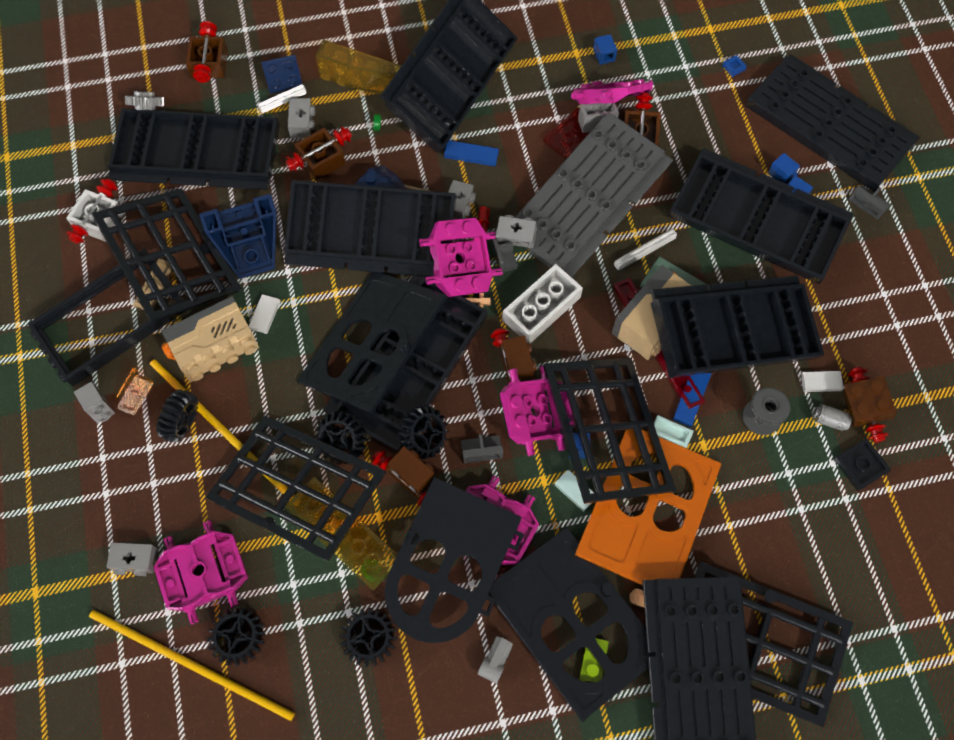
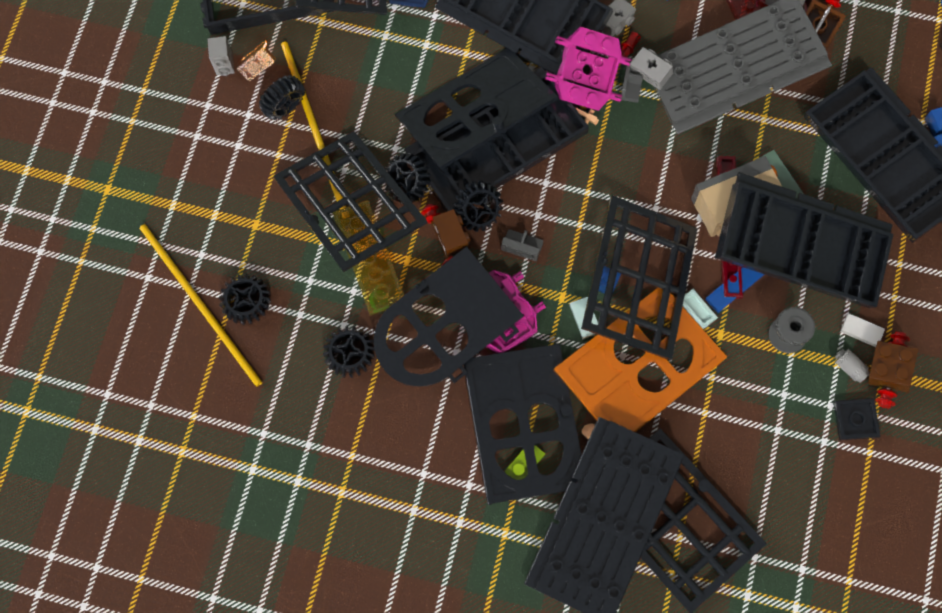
camera: 30 degrees right, 5 degrees up
(122, 553) = (193, 197): light grey brick -> none
(209, 339) = (338, 44): tan piece -> none
(209, 584) = (224, 246): dark pink piece -> none
(264, 314) = (396, 44): white tile -> none
(494, 663) = (438, 424): light grey piece -> none
(515, 355) = (591, 184): reddish brown brick -> none
(521, 424) = (564, 234): dark pink piece -> none
(542, 303) = (641, 143): white brick -> none
(645, 249) = (765, 137): white axle -> none

